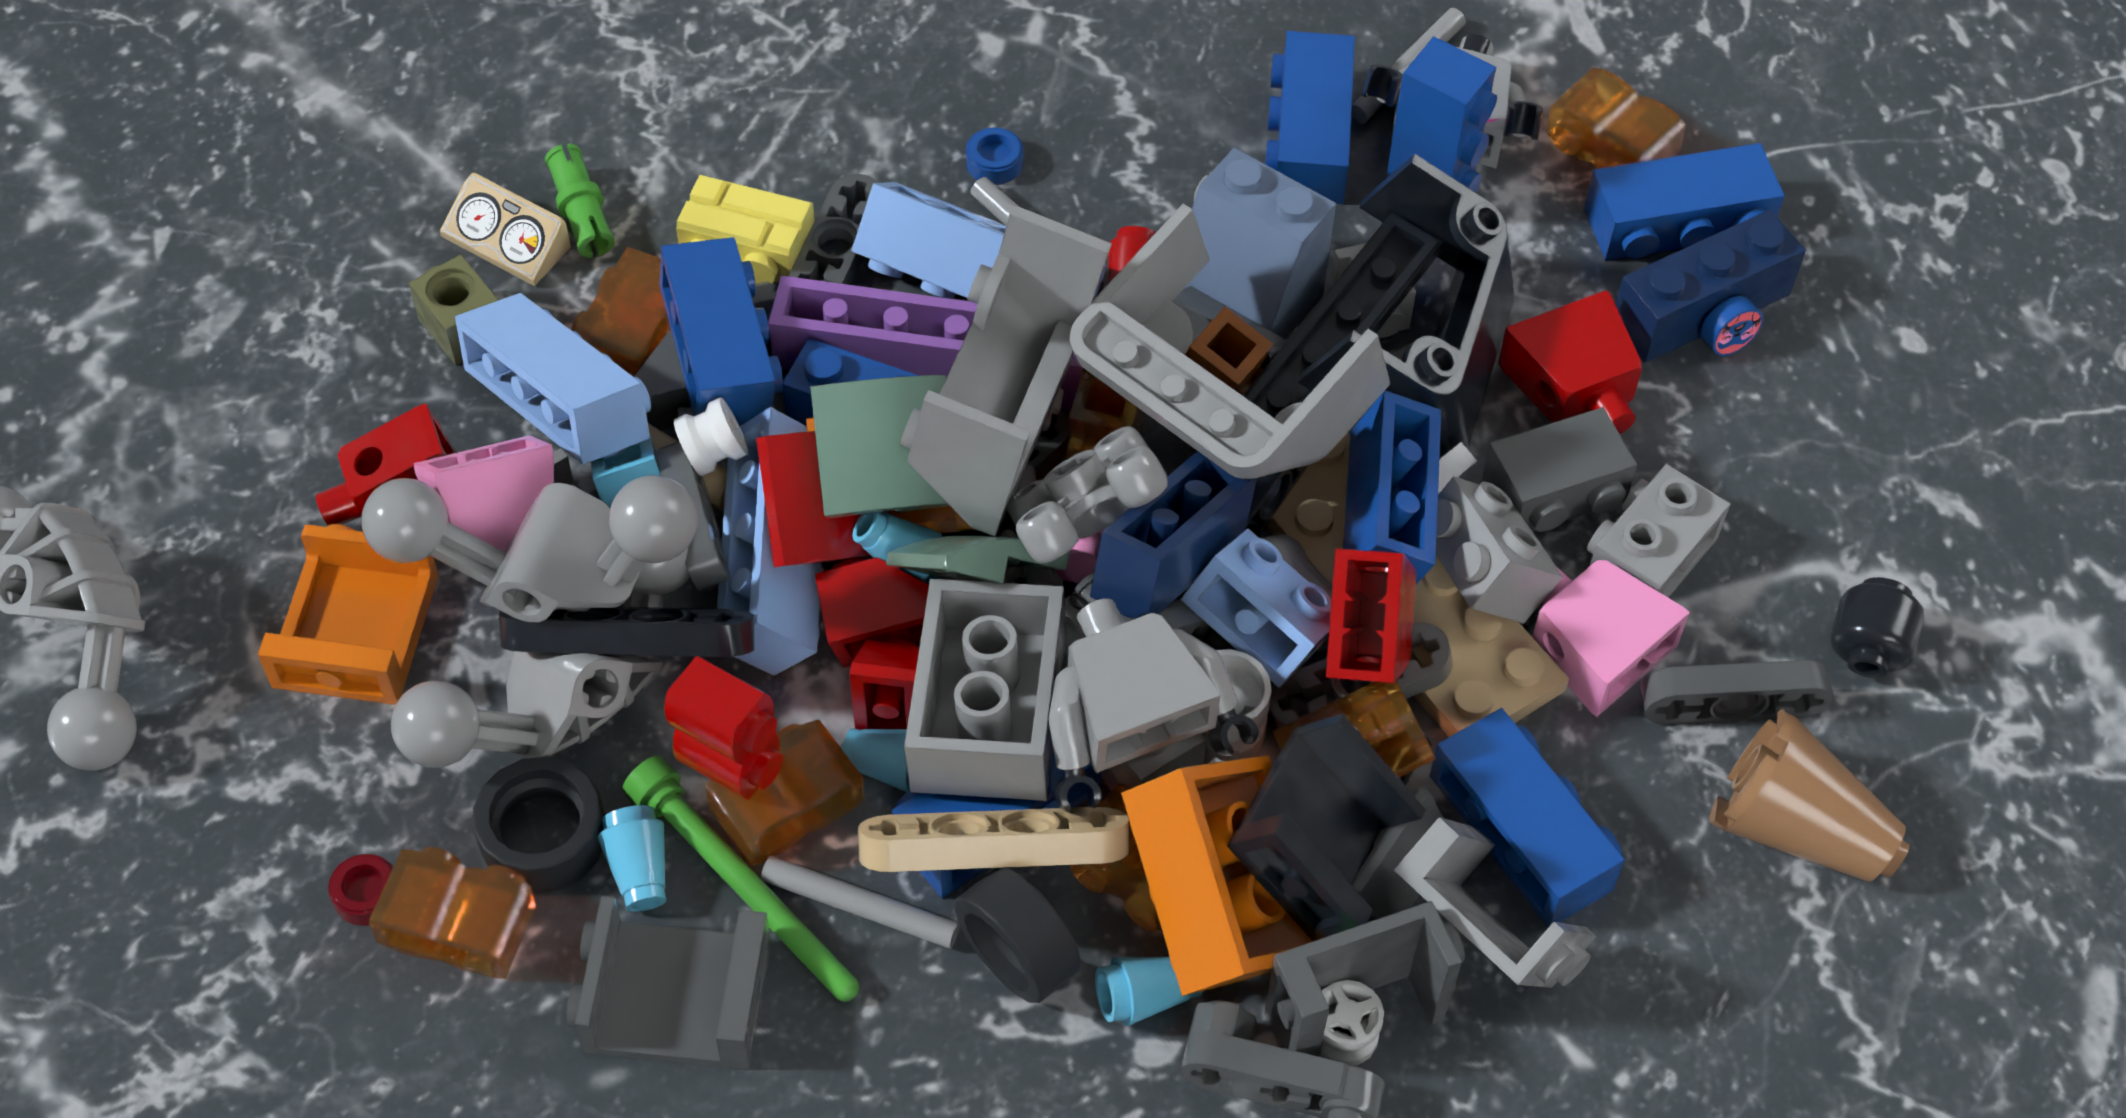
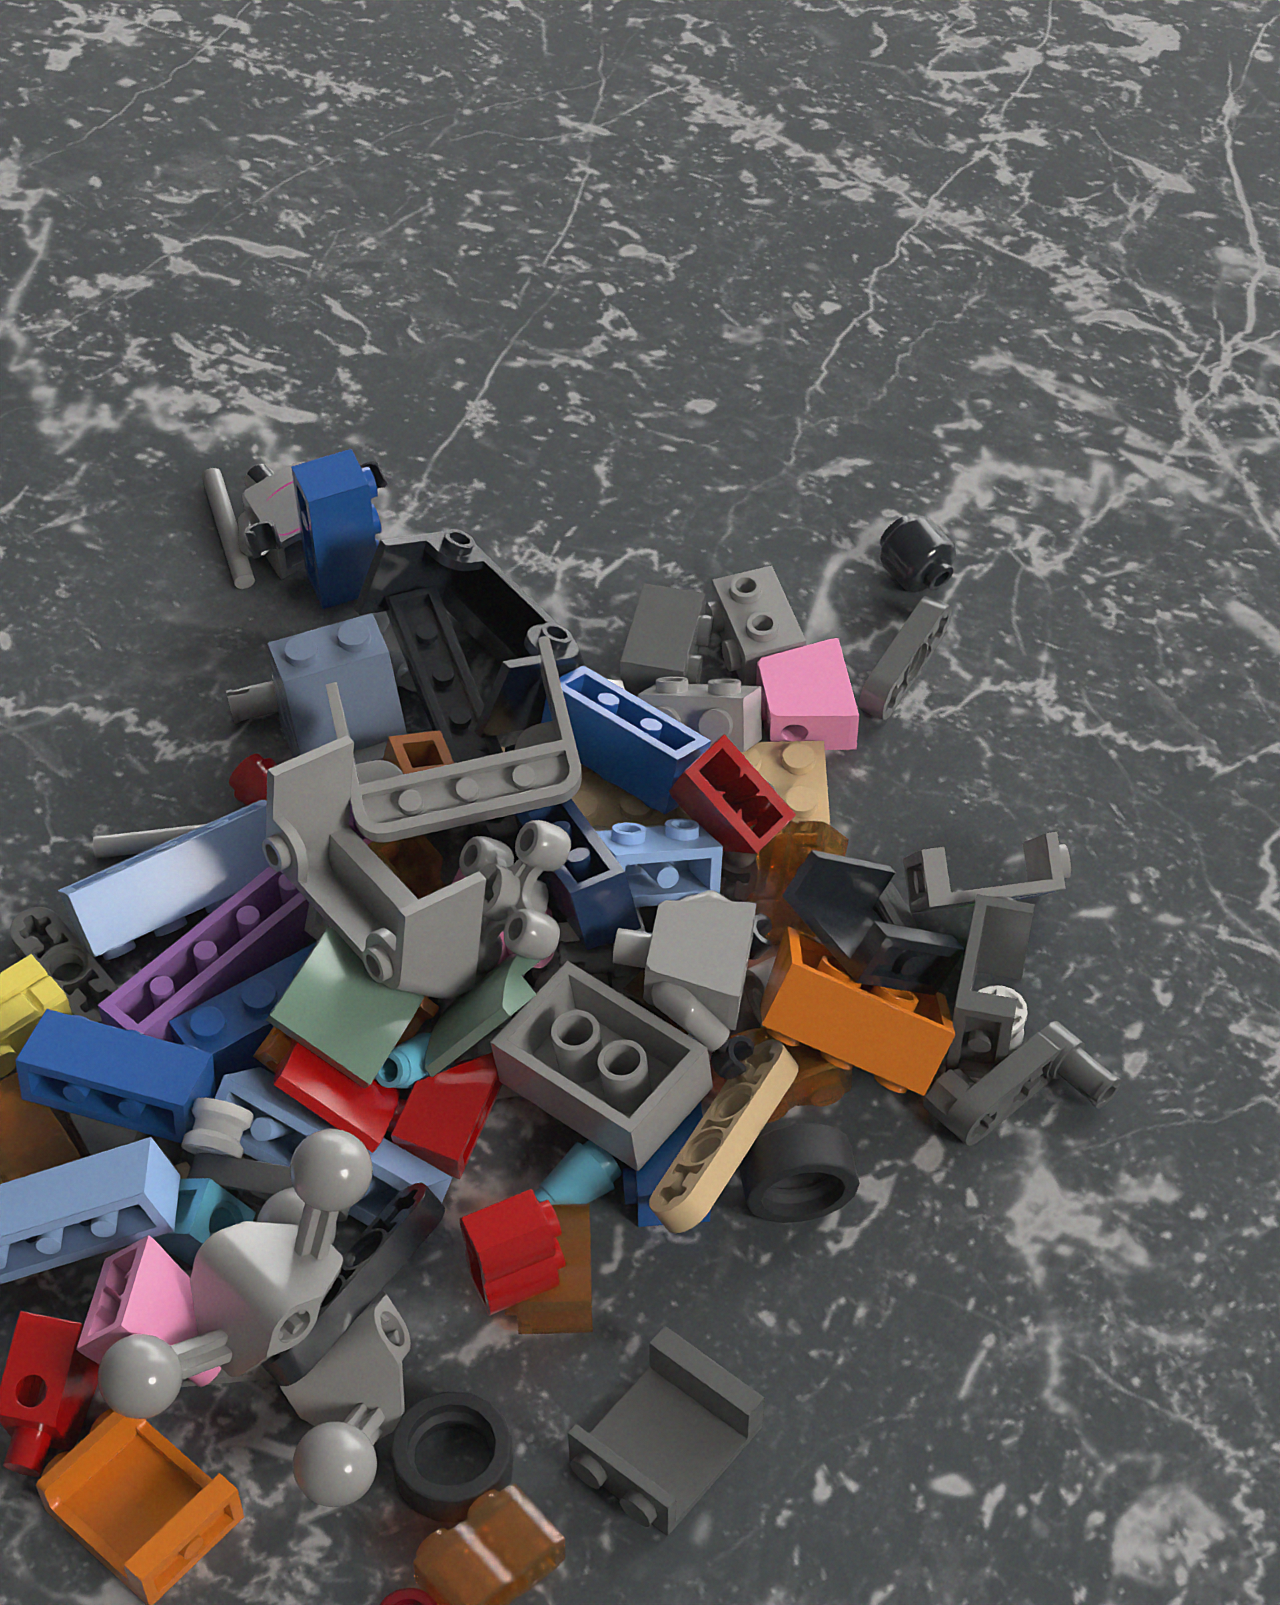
camera: 55 degrees left, 5 degrees down
(636, 855) = (533, 1401): medium azure cone -> none
(658, 786) = (486, 1357): bright green piece -> none
(860, 902) = (677, 1274): light grey bar -> none
(883, 684) = (524, 1140): red slope -> none
(994, 155) = (73, 822): blue tile -> none
(1137, 988) = (882, 1128): medium azure cone -> none
(1312, 111) = (226, 601): blue brick -> none
(1530, 814) = (901, 819): blue brick -> none
(1575, 360) = (582, 580): red torso -> none
(1611, 124) = (405, 442): clear orange brick -> none
(1673, 296) = (578, 476): dark blue brick -> none
(1678, 199) = (496, 447): blue brick -> none
(1731, 325) = (618, 484): blue tile -> none
(1809, 804) = (1016, 669): medium nougat cone -> none

